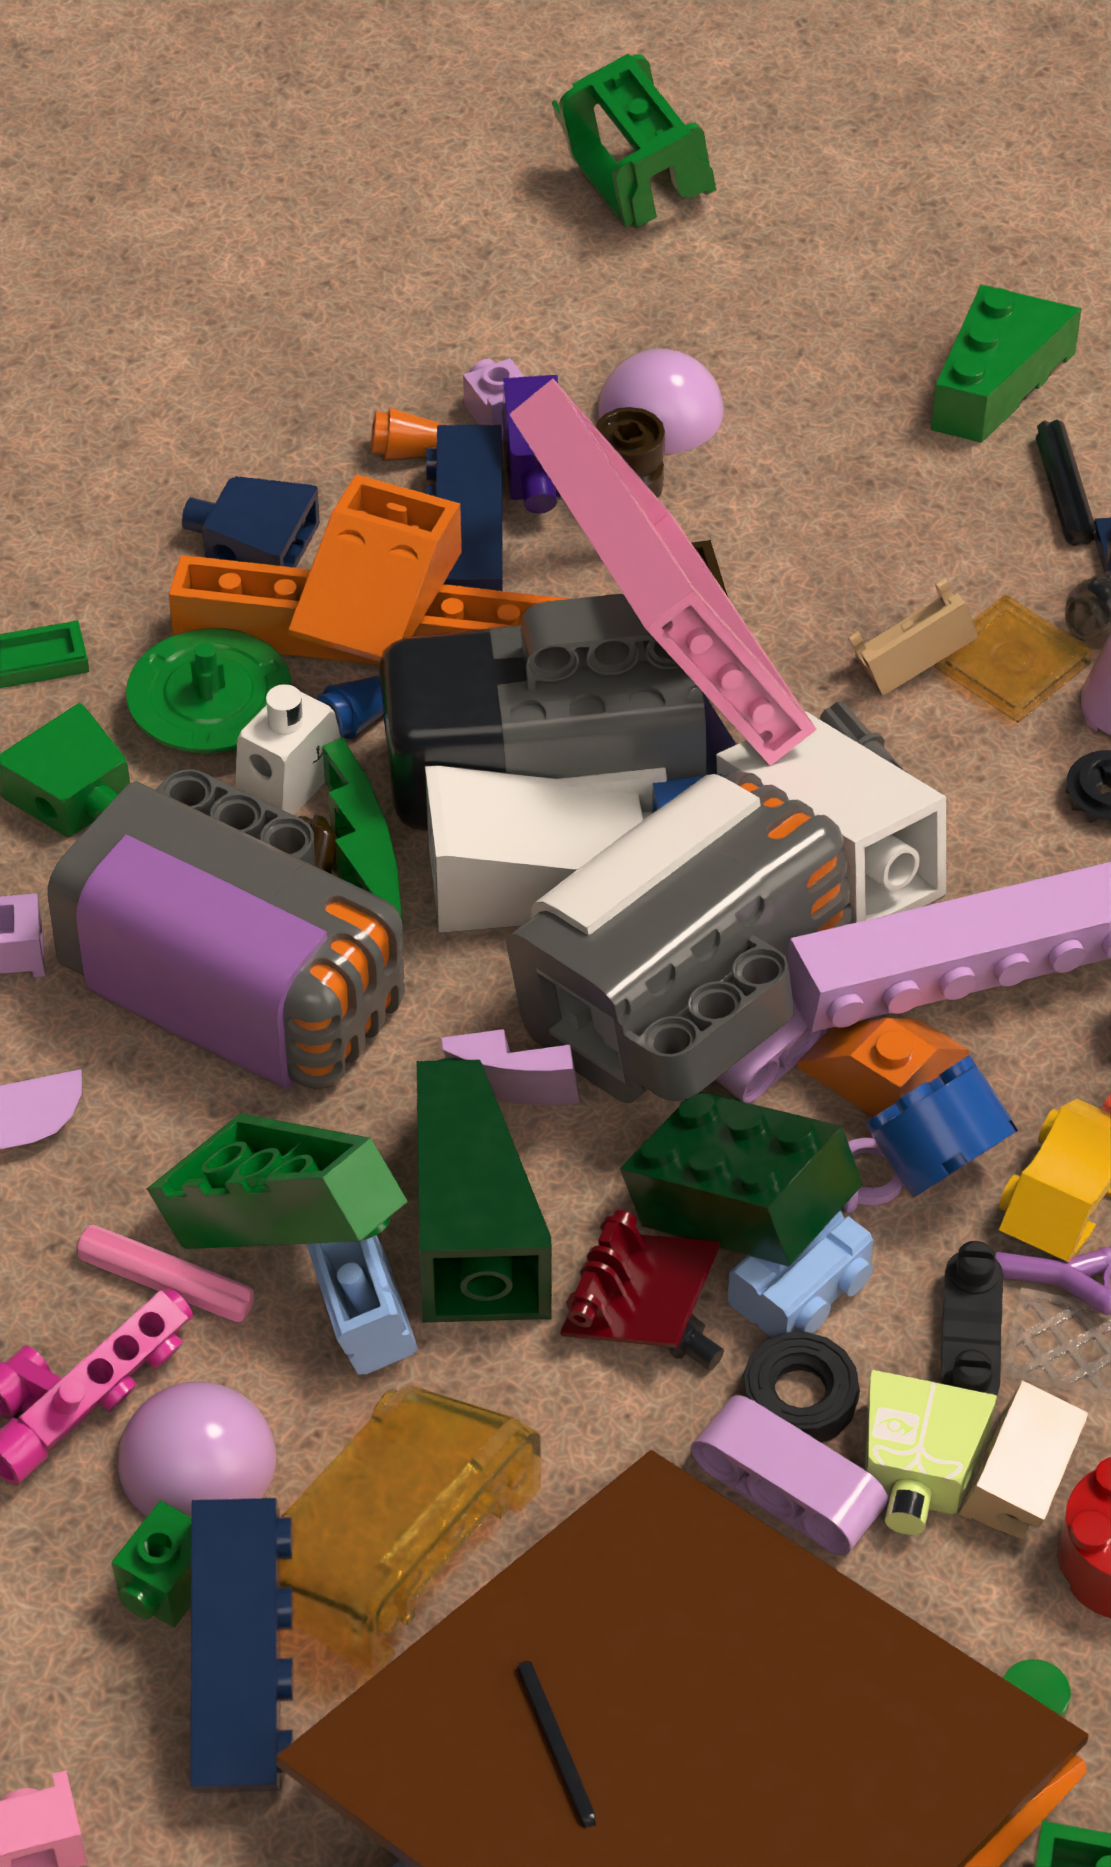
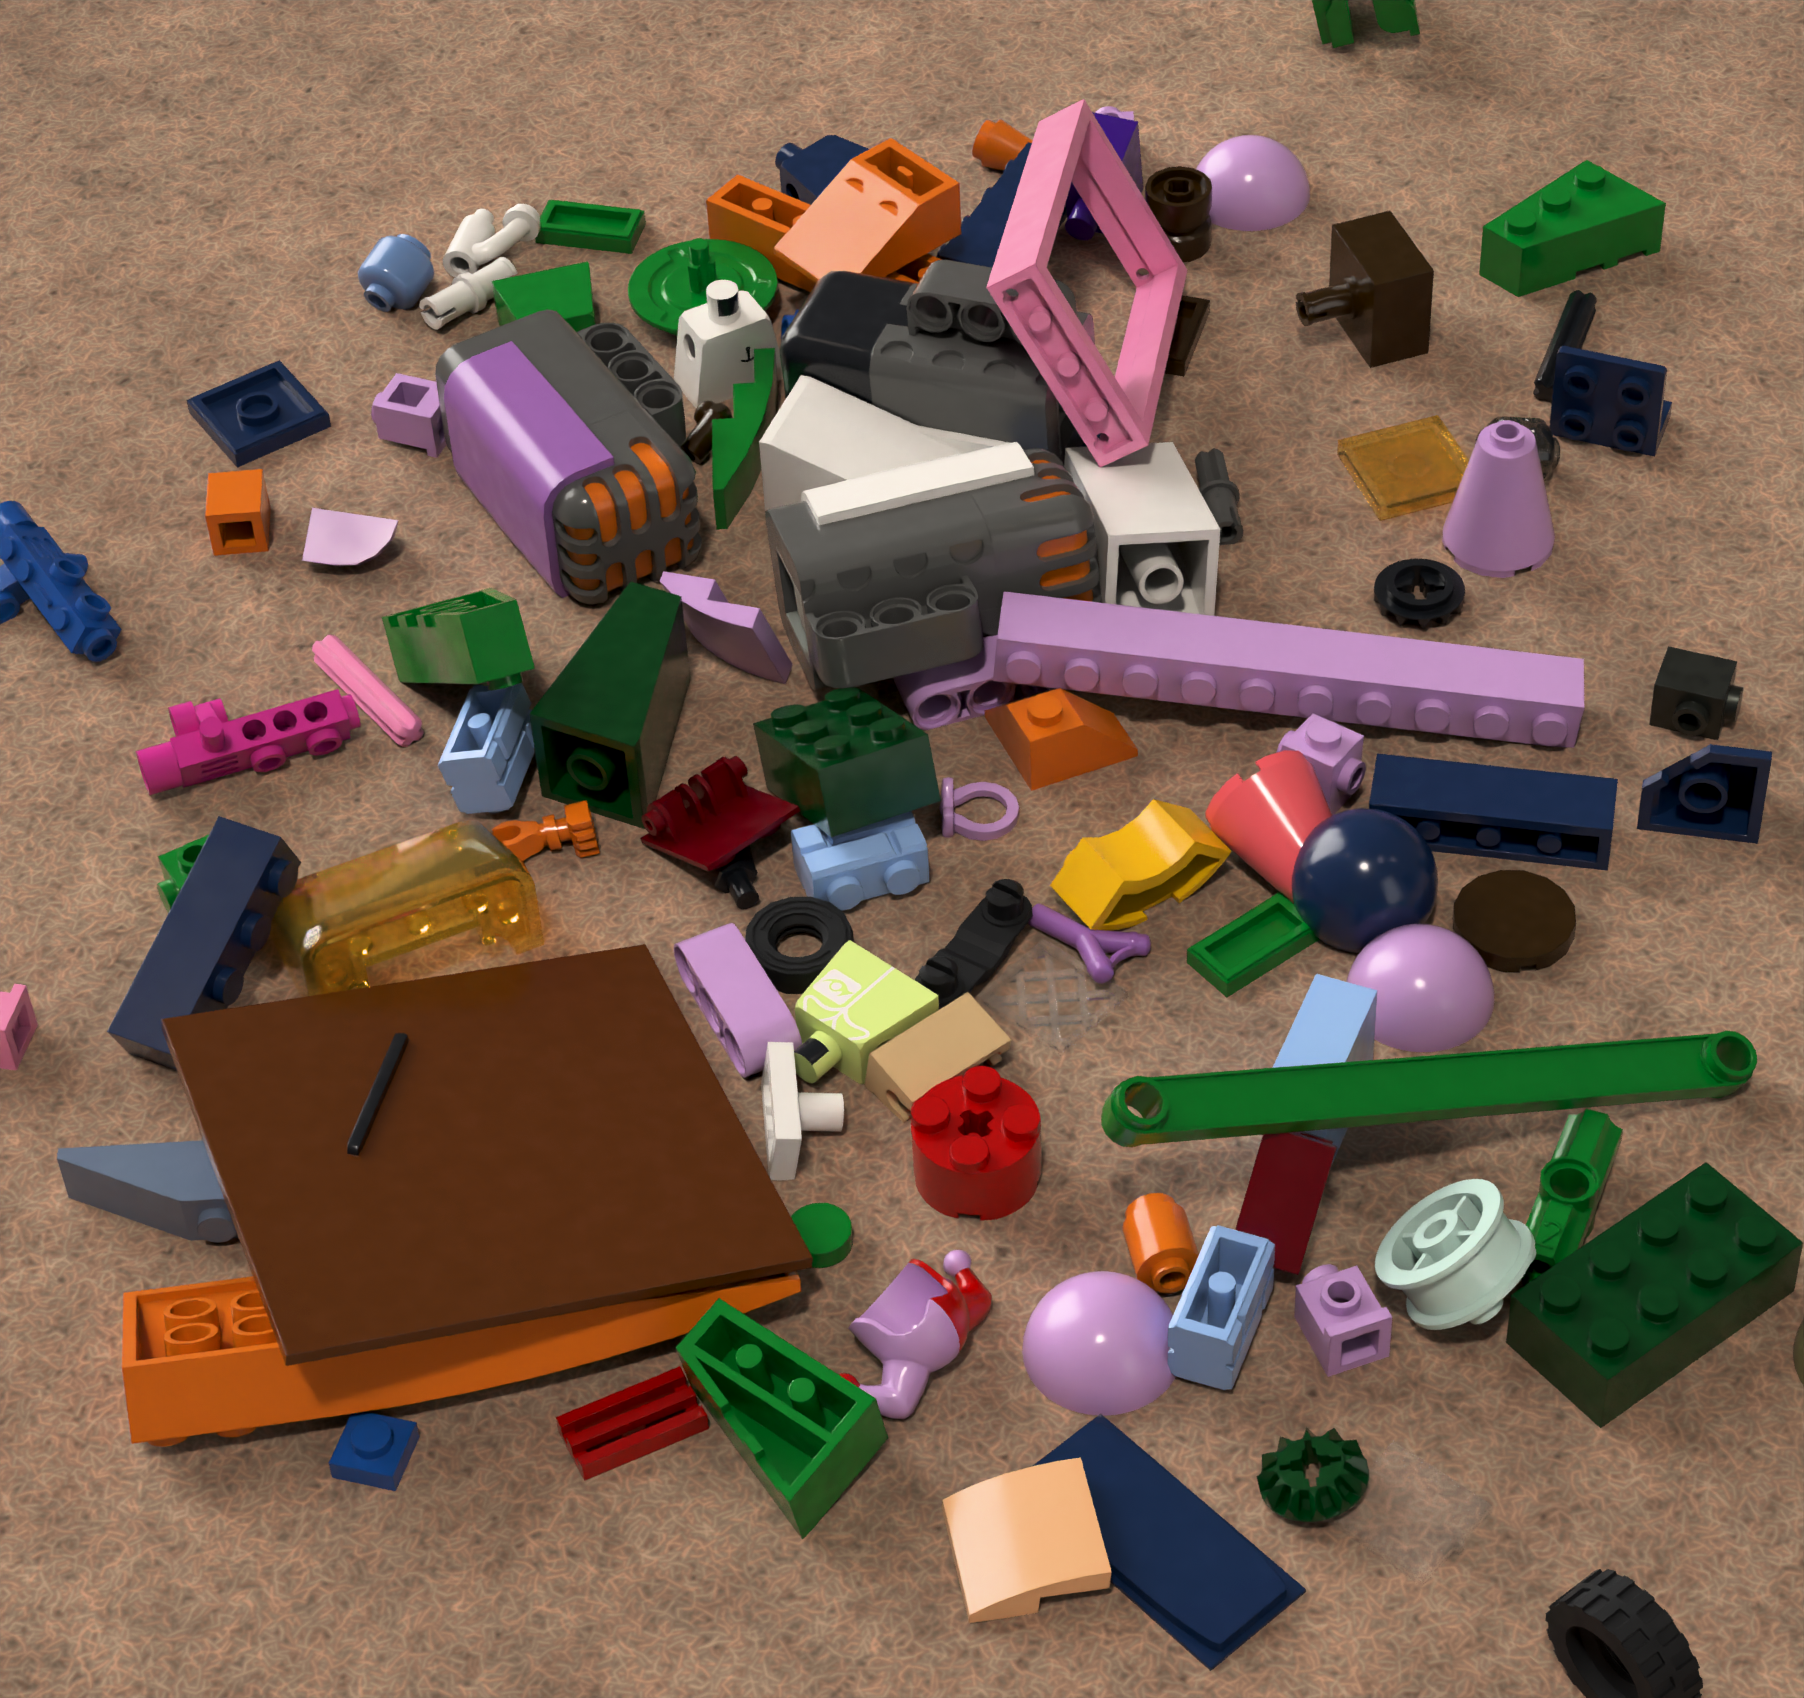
camera: 30 degrees right, 5 degrees down
(195, 1446) = (309, 809): lavender piece -> none
(494, 1344) = (531, 837): none -> orange piece
(880, 482) = (1375, 290): none -> dark brown brick
(916, 641) = (1321, 423): tan hinge -> none
(923, 1578) = (791, 1111): none -> white tile
(941, 1126) = (1042, 783): blue brick -> none

